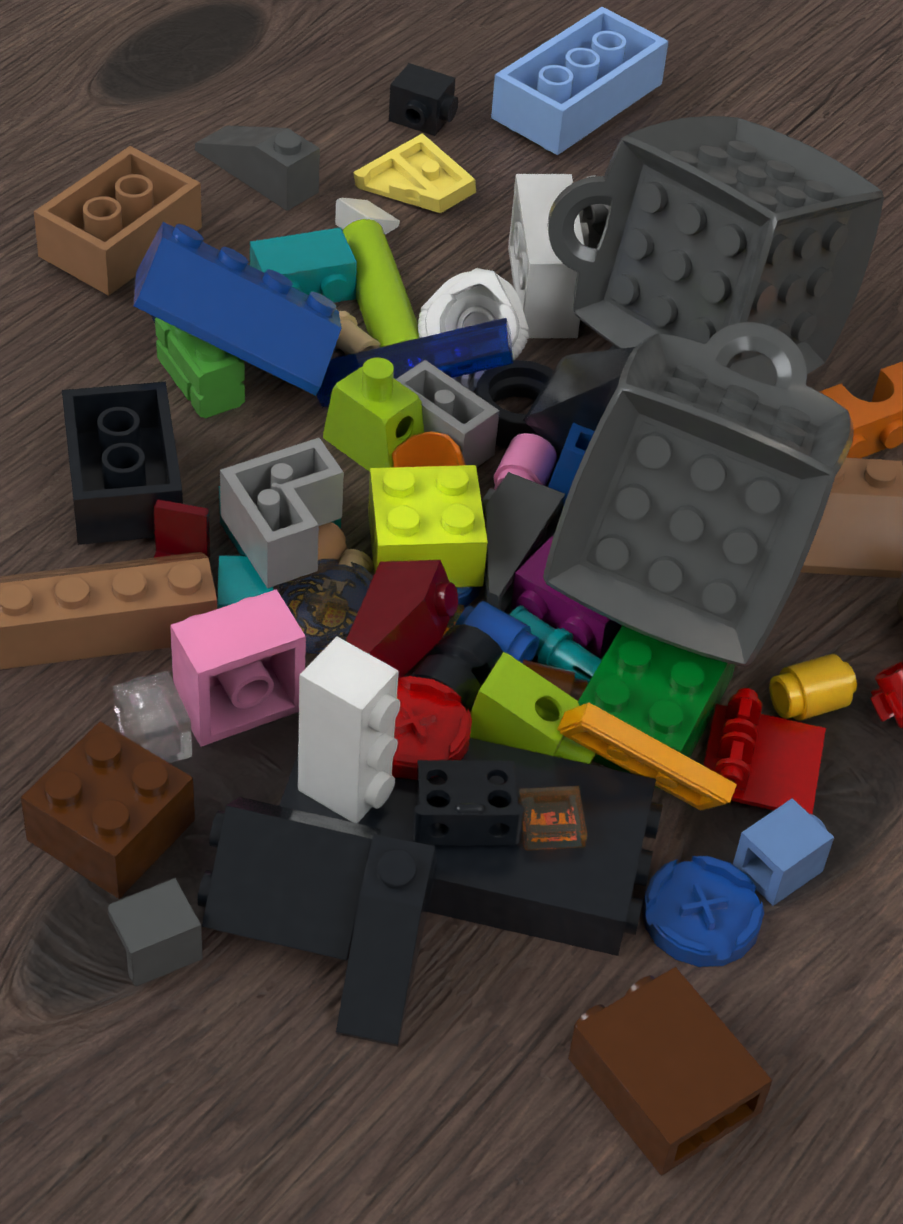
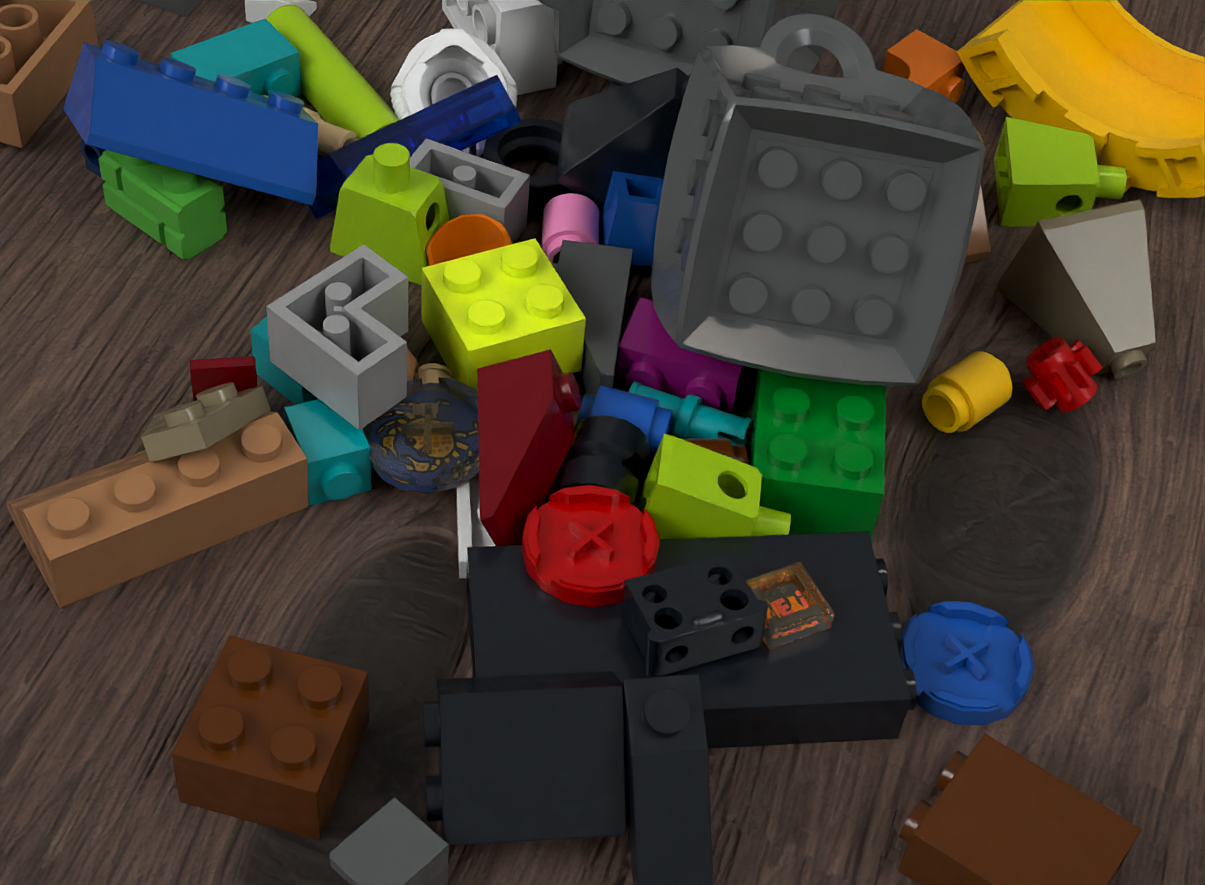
camera: 20 degrees left, 0 degrees up
(120, 459) = (120, 326): black brick -> none
(139, 552) = (202, 422): none -> dark tan wing
(154, 716) = (280, 609): clear brick -> none
(238, 666) = (361, 528): bright pink brick -> none
(347, 730) = (550, 566): white brick -> none
(646, 757) = (852, 508): light orange tile -> none
(764, 753) = (948, 481): red hinge -> none
(783, 851) = (1021, 573): medium blue brick -> none

